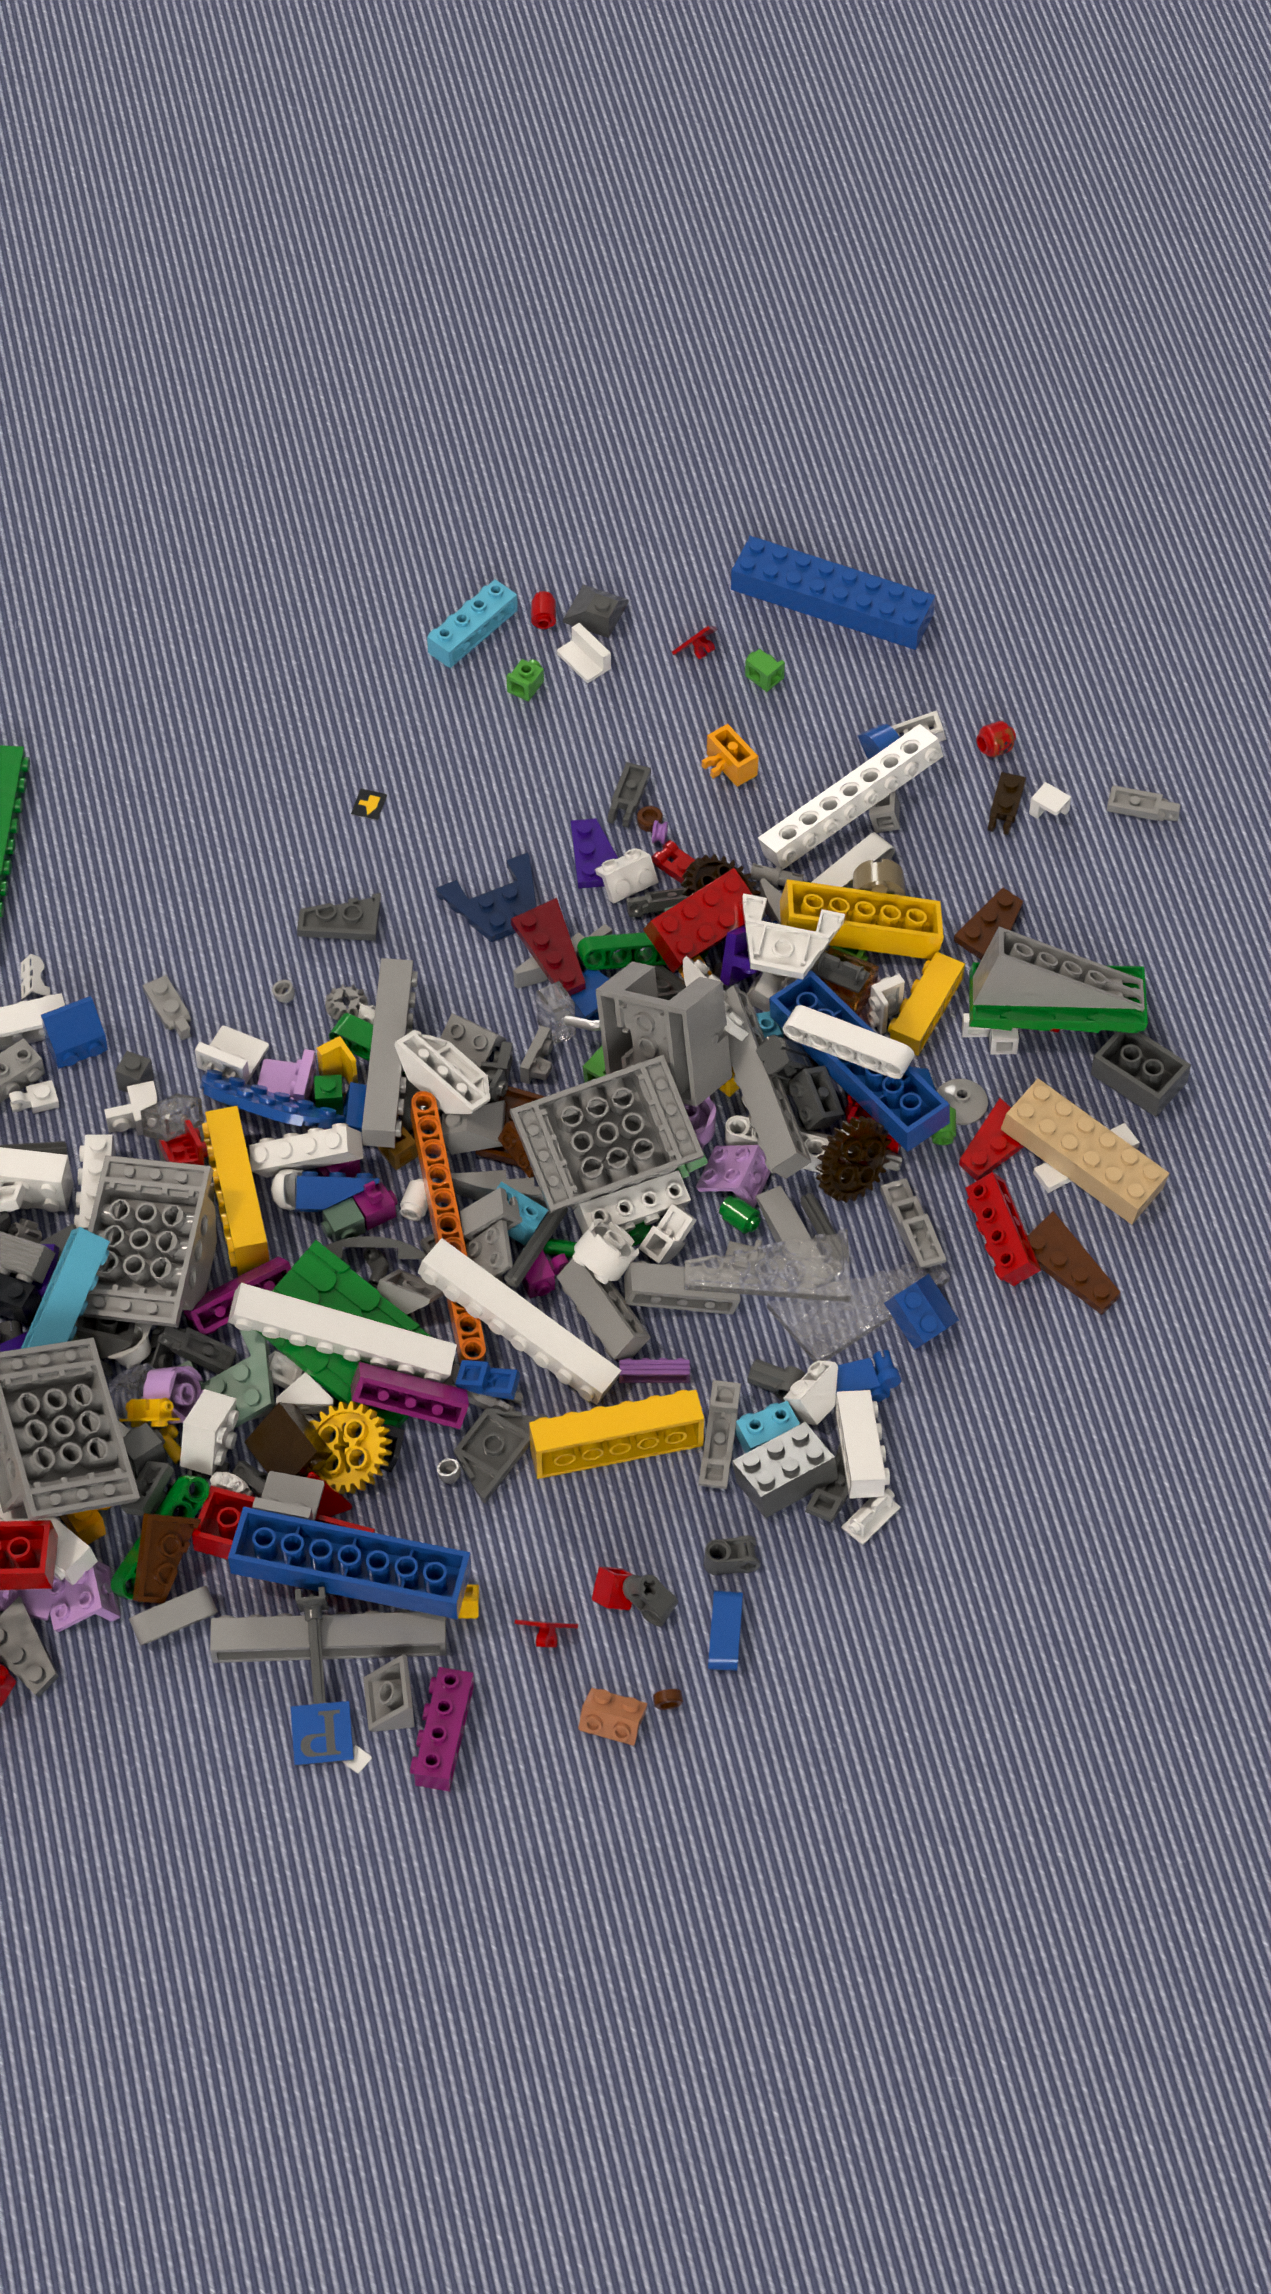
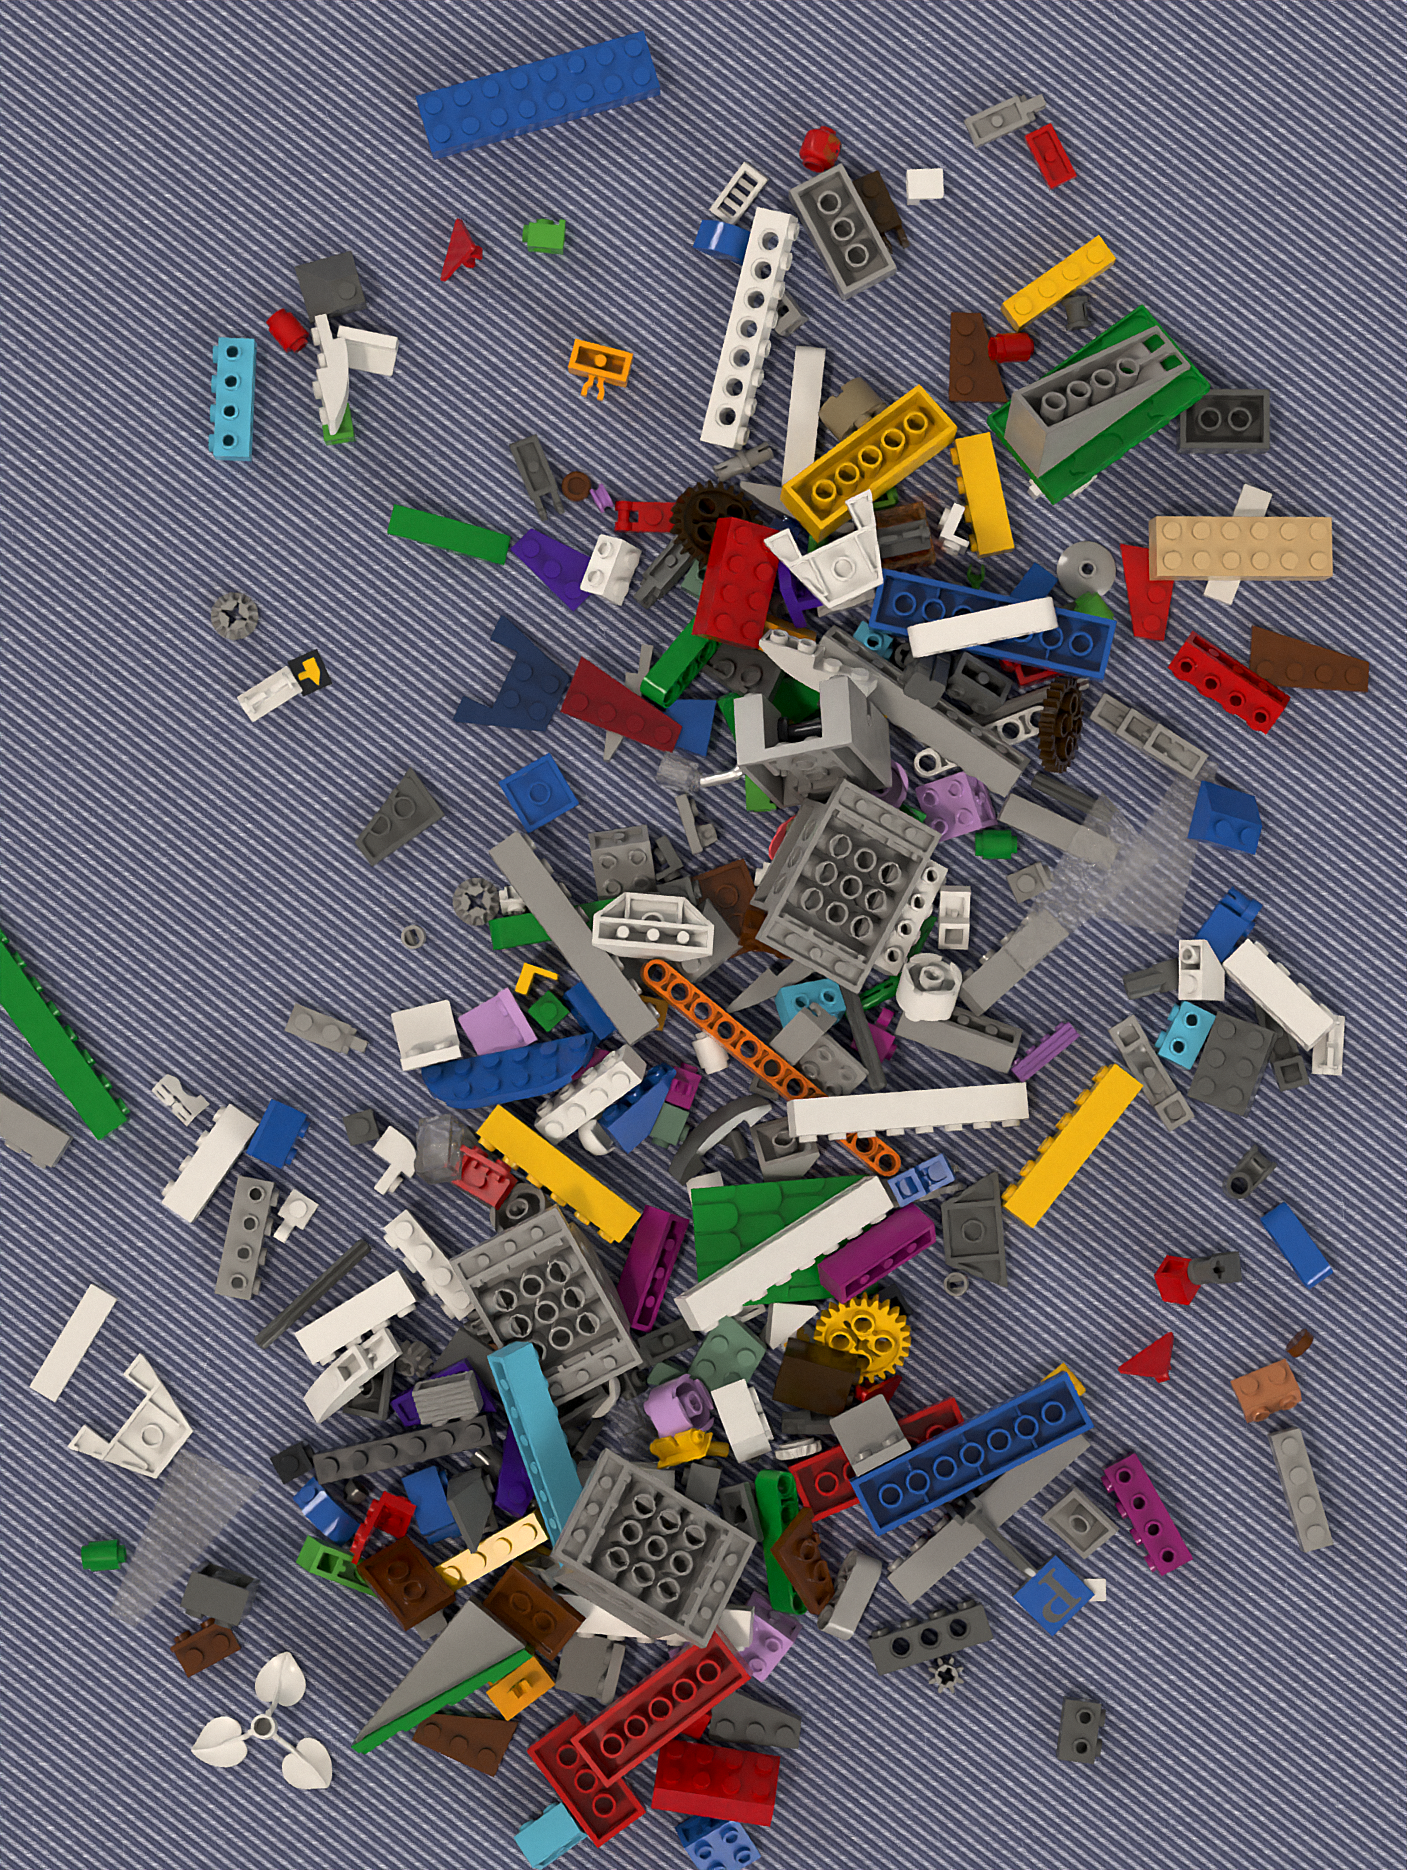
camera: 45 degrees left, 30 degrees up
(185, 1694) = (976, 1632): none -> dark grey brick
(188, 1733) = (942, 1667): none -> light grey gear
(252, 1841) = (1079, 1730): none -> dark grey brick
(330, 795) = (269, 694): none -> white hinge
(348, 746) = (247, 610): none -> light grey gear
(451, 968) = (538, 793): none -> blue plate
(536, 781) = (449, 535): none -> green slope
(546, 644) = (333, 375): none -> white slope
(575, 1798) = (1300, 1489): none -> light grey brick
(967, 790) = (842, 232): none -> light grey brick
(1026, 926) = (1010, 347): none -> red brick
(1092, 943) = (1076, 313): none -> dark grey bush
(1093, 916) = (1057, 284): none -> yellow brick
(1154, 845) = (1050, 156): none -> red plate

